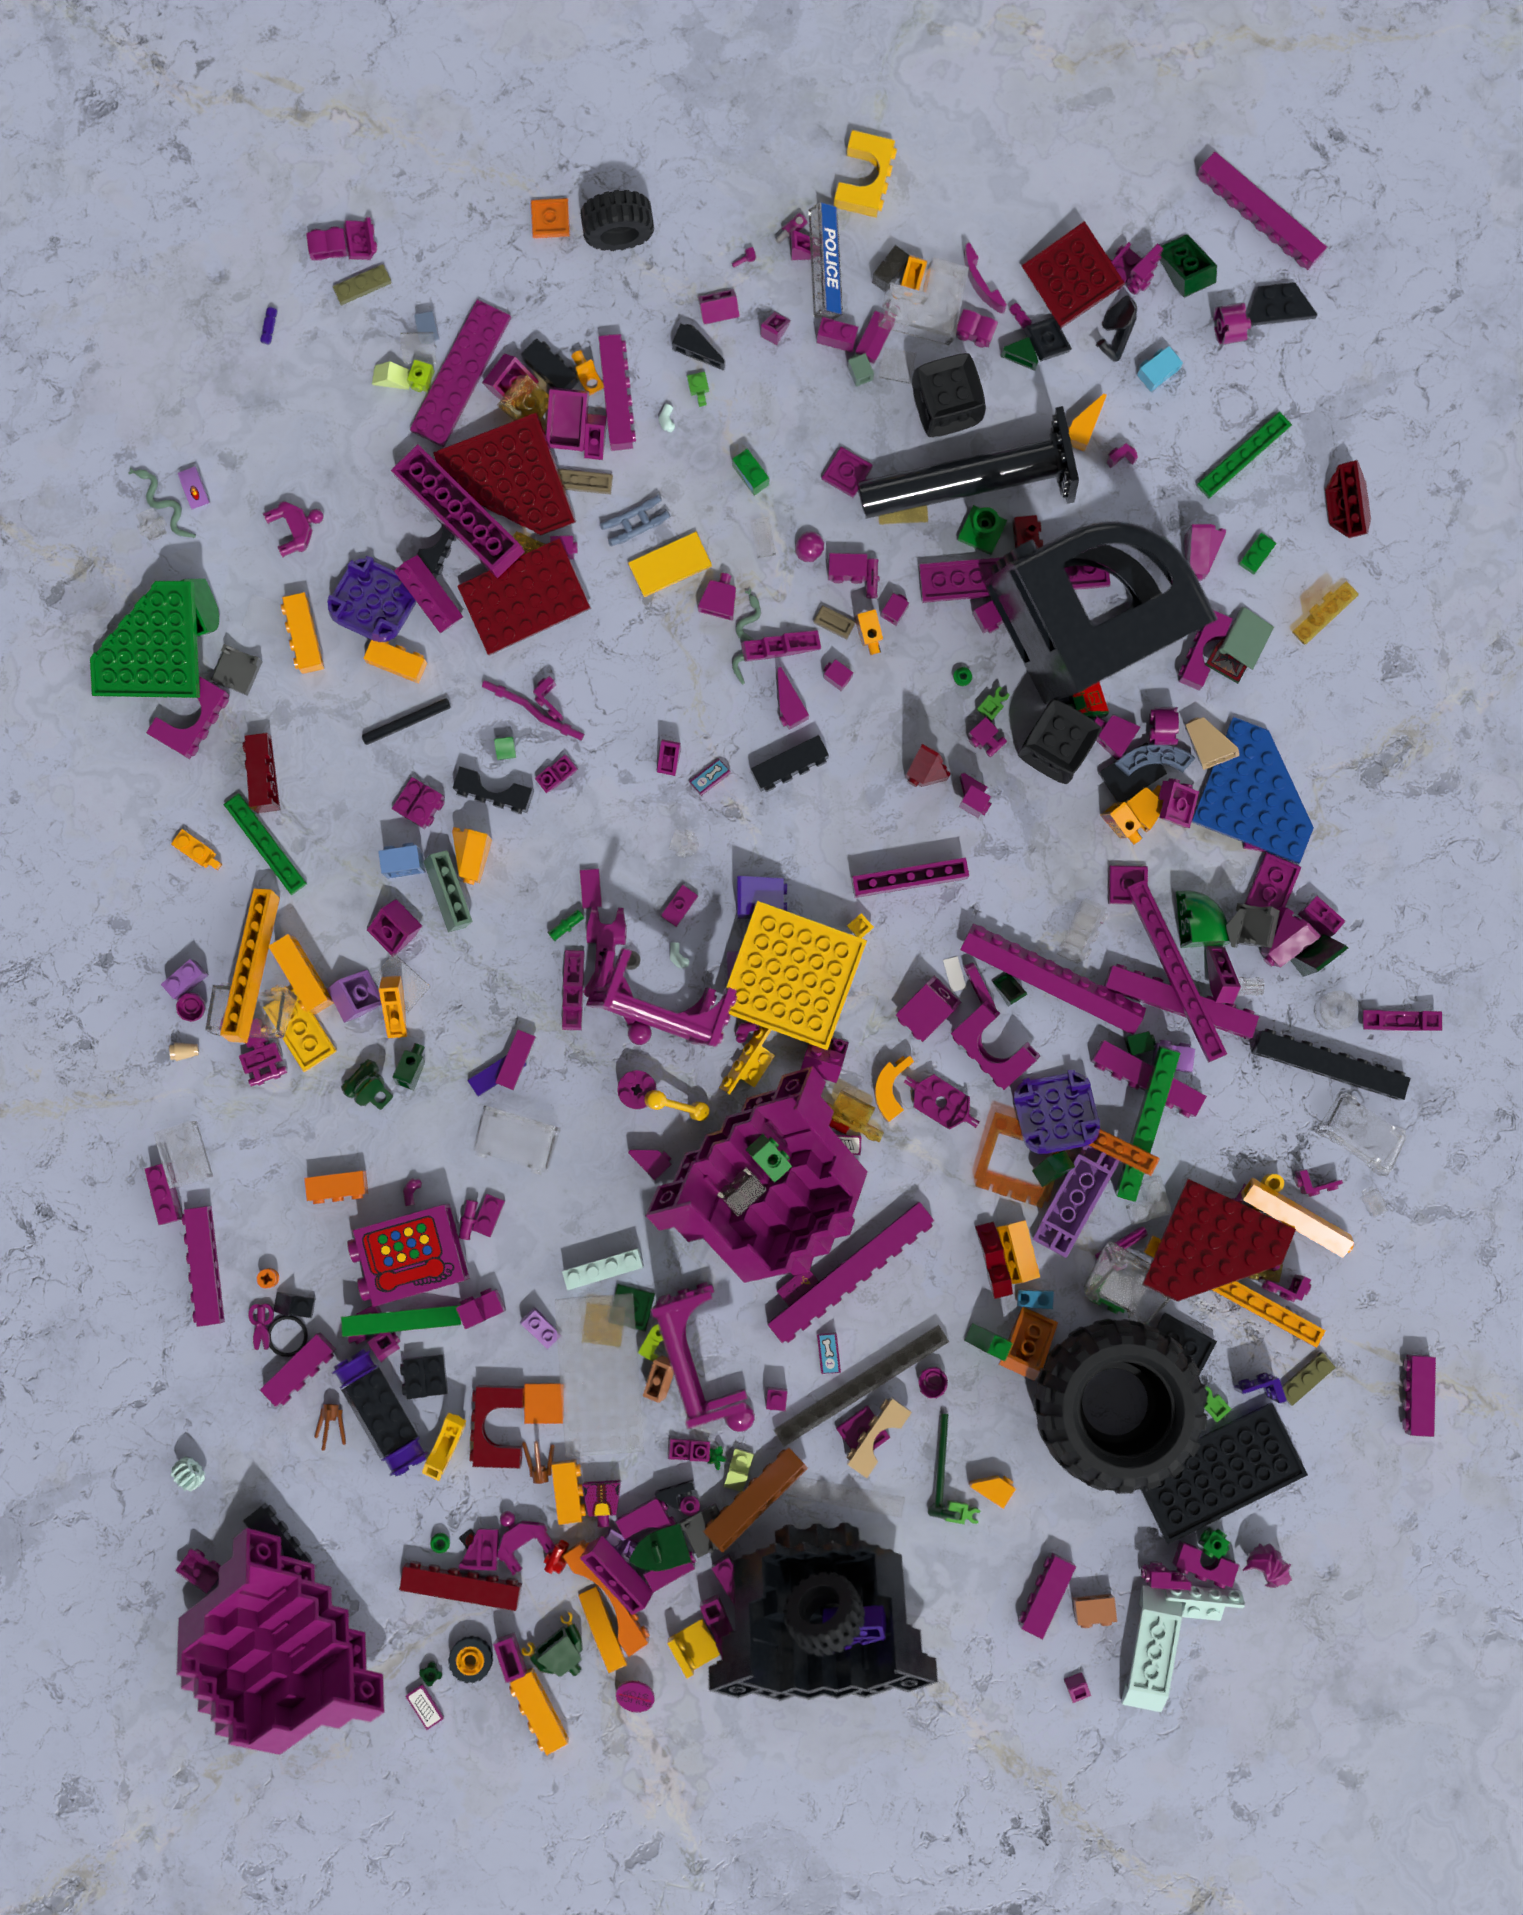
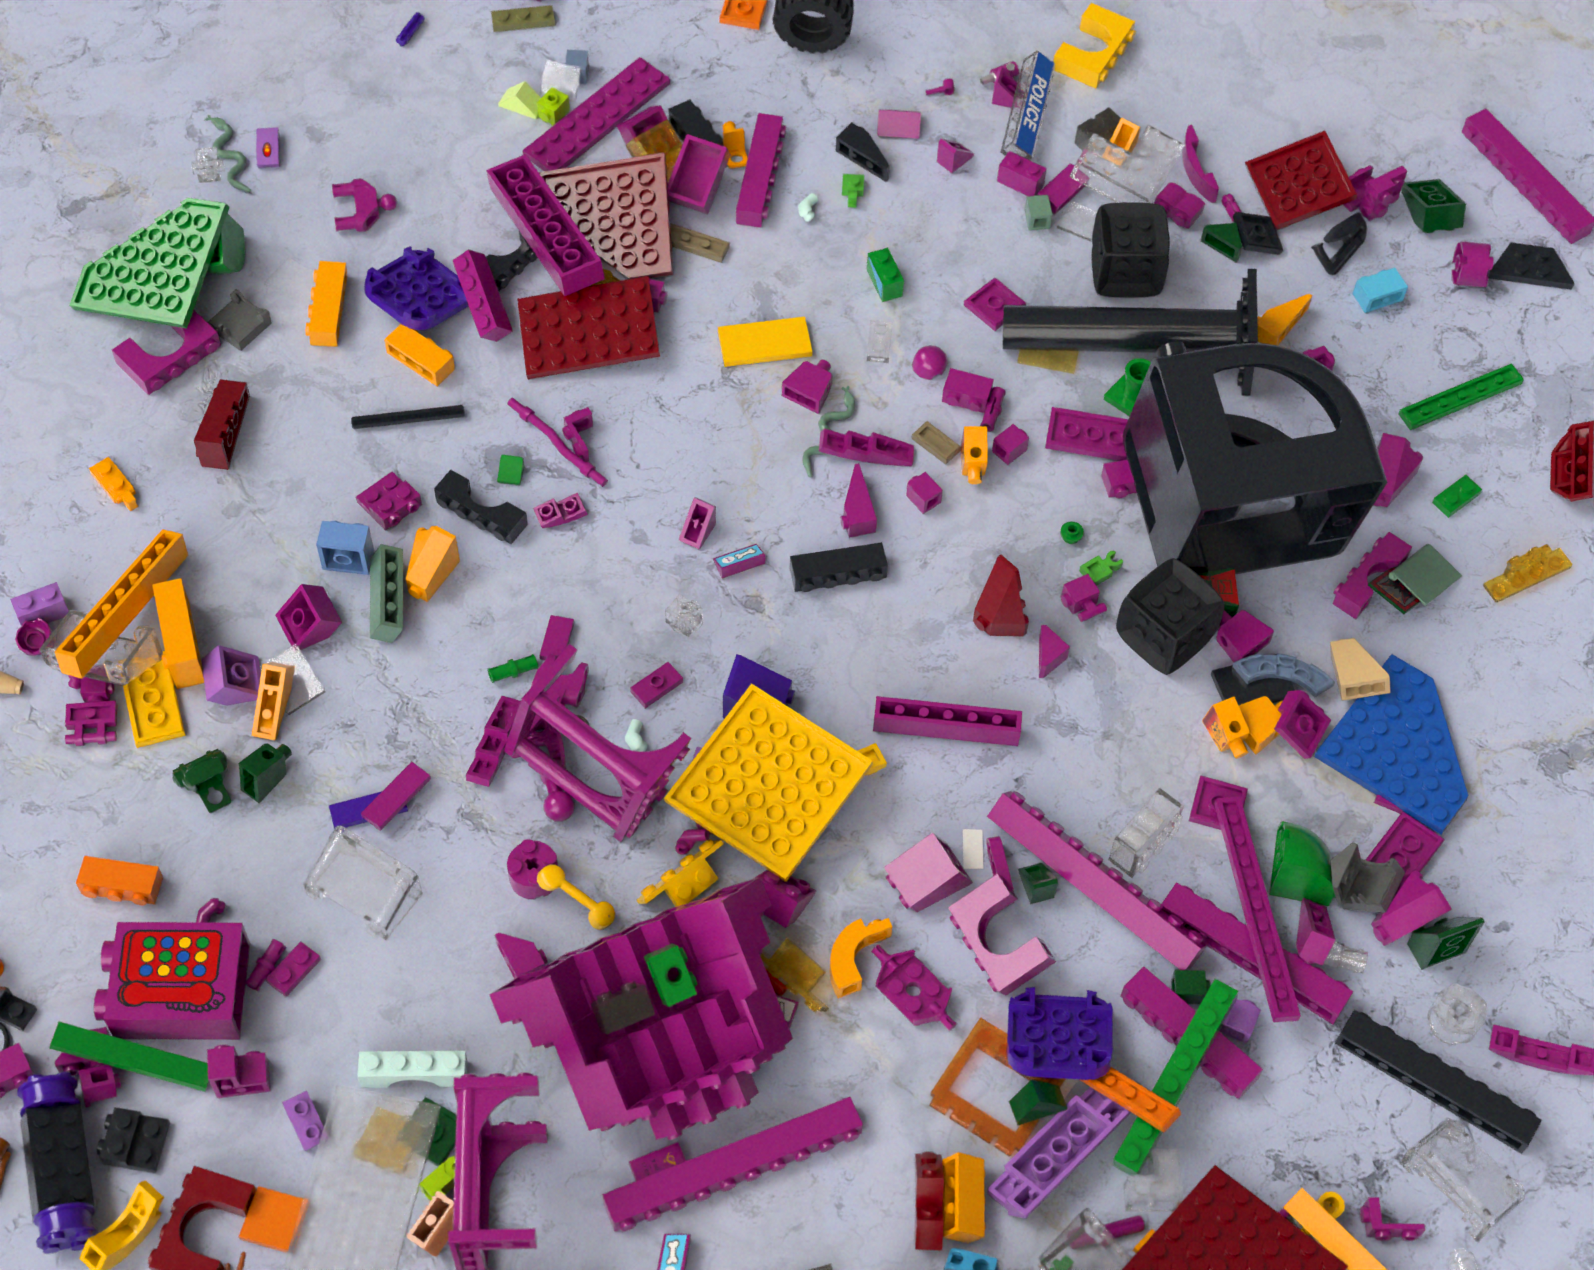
camera: 15 degrees right, 25 degrees down
(265, 844) = (196, 498): green tile -> none
(595, 436) = (722, 203): magenta slope -> none
(640, 511) = (748, 283): sand blue piece -> none
(975, 802) = (1049, 649): magenta brick -> none
(1165, 725) = (1303, 636): magenta brick -> none
(1321, 917) = (1461, 897): magenta hinge -> none

